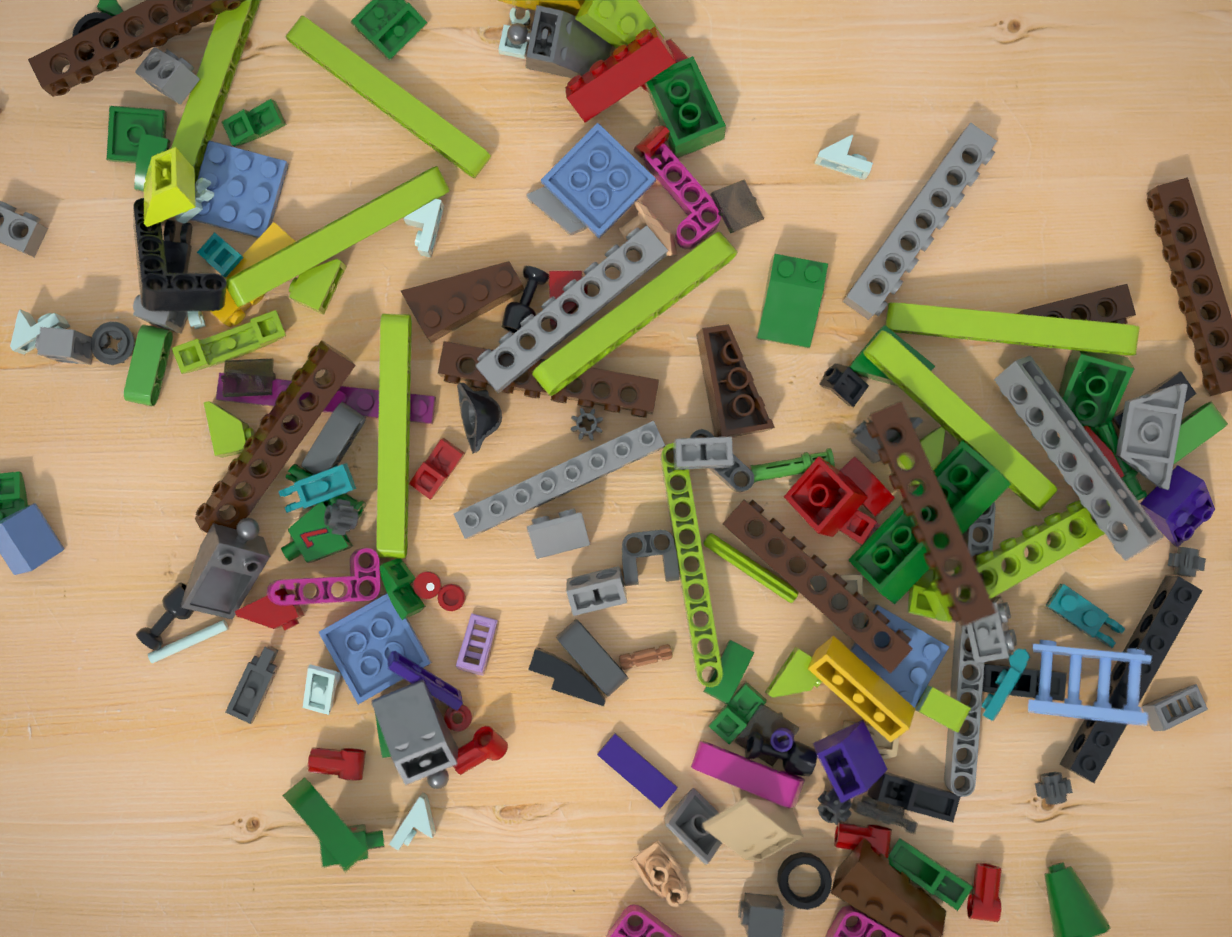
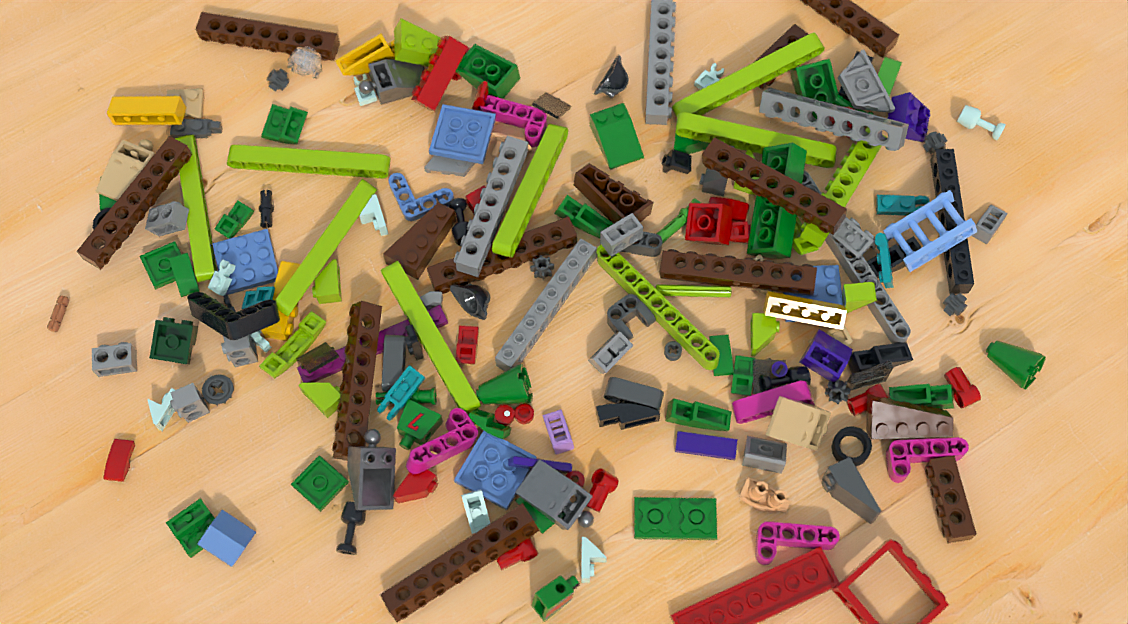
camera: 25 degrees left, 20 degrees down
(92, 247) = (173, 340): none -> dark green plate
(148, 365) = (248, 388): bright green beam -> none
(165, 537) = (319, 483): none -> green plate
(168, 187) = (204, 274): neon yellow slope -> none
(168, 733) = (459, 563): none -> reddish brown brick
(188, 641) = (372, 539): light aqua bar -> none
(253, 686) = (431, 537): dark grey hinge -> none
(300, 131) = (266, 208): none -> black pin
(325, 824) = (529, 581): green slope -> none
(341, 517) = (426, 397): dark grey gear -> none
(367, 433) = (413, 343): none -> black hinge
(429, 383) = (432, 299): none -> light grey piece
(447, 558) = (506, 388): none -> green cone
(483, 234) = (411, 203): none -> medium blue beam
(544, 834) = (675, 518): none -> green piece
(559, 534) = (566, 333): light grey slope -> none
(645, 657) = (666, 375): nougat axle -> none
(651, 730) = (698, 415): none -> green slope
(670, 636) = (673, 345): none -> dark grey bush
(680, 389) = (582, 216): none -> green slope
(837, 159) = (592, 52): light aqua slope -> none
(840, 218) = (614, 80): none -> hat
(961, 291) = (708, 78): none -> light aqua plate

